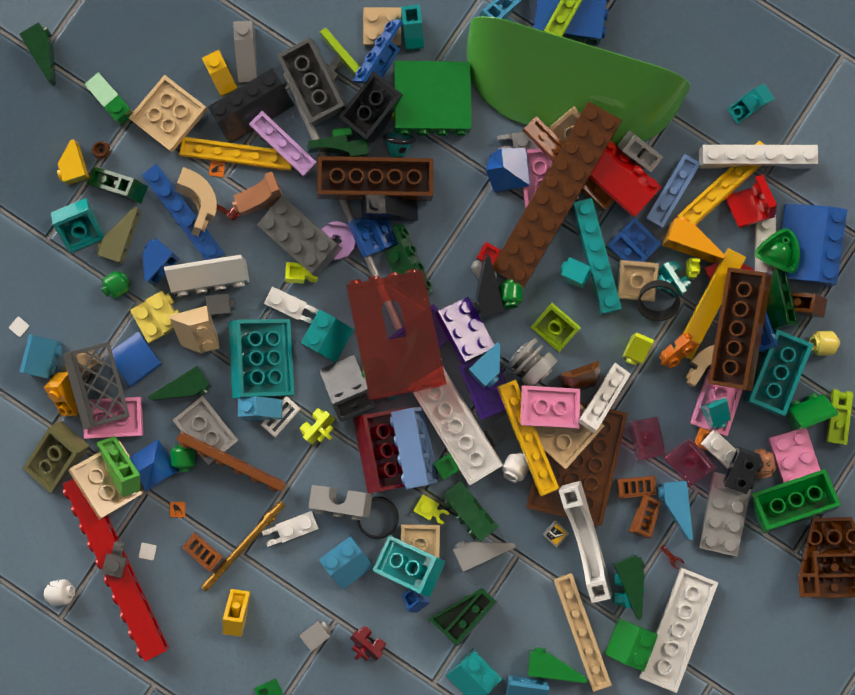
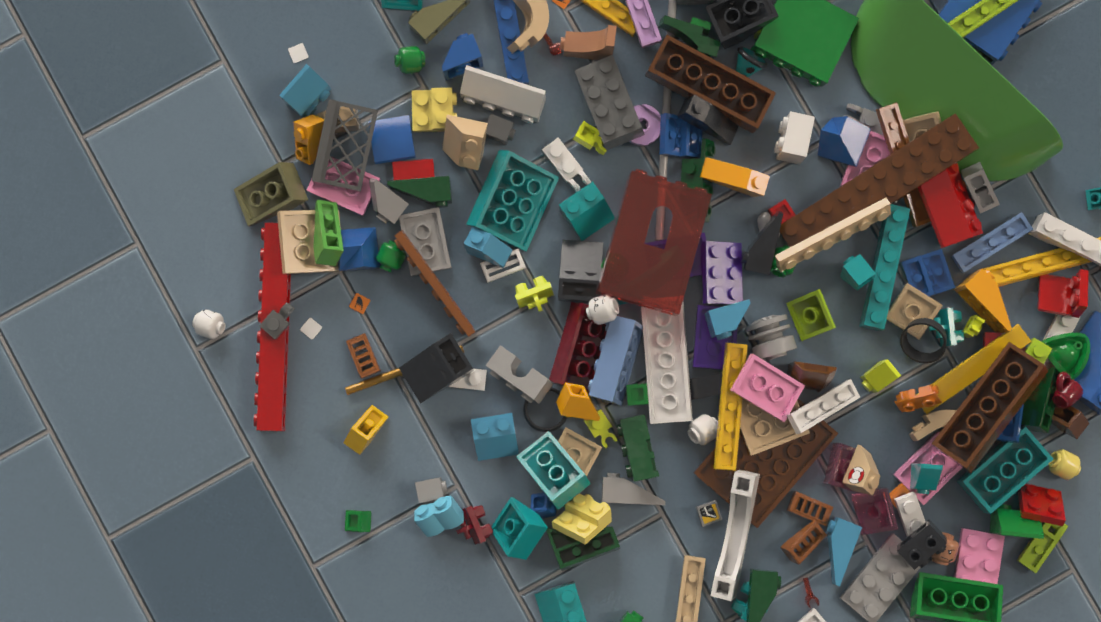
camera: 25 degrees right, 0 degrees up
(156, 415) = (385, 202): none -> light grey slope
(165, 375) = (413, 169): none -> red tile
(268, 531) = (436, 368): none -> black slope
(333, 653) = (438, 516): none -> medium azure brick
(381, 412) = (602, 309): none -> white head
(399, 500) = (576, 403): none -> light orange slope
(405, 630) = (518, 529): none -> teal slope
(435, 245) = (735, 177): none -> light orange slope
(454, 593) = (583, 518): none -> light yellow plate
(468, 187) = (794, 138): none -> white brick
(540, 251) = (840, 231): none -> tan plate
(663, 435) = (862, 472): none -> tan slope
(755, 262) = (1038, 350): none -> lime plate
(796, 283) = (1067, 391): none -> dark red piece
(822, 386) = (1041, 504): none -> red plate

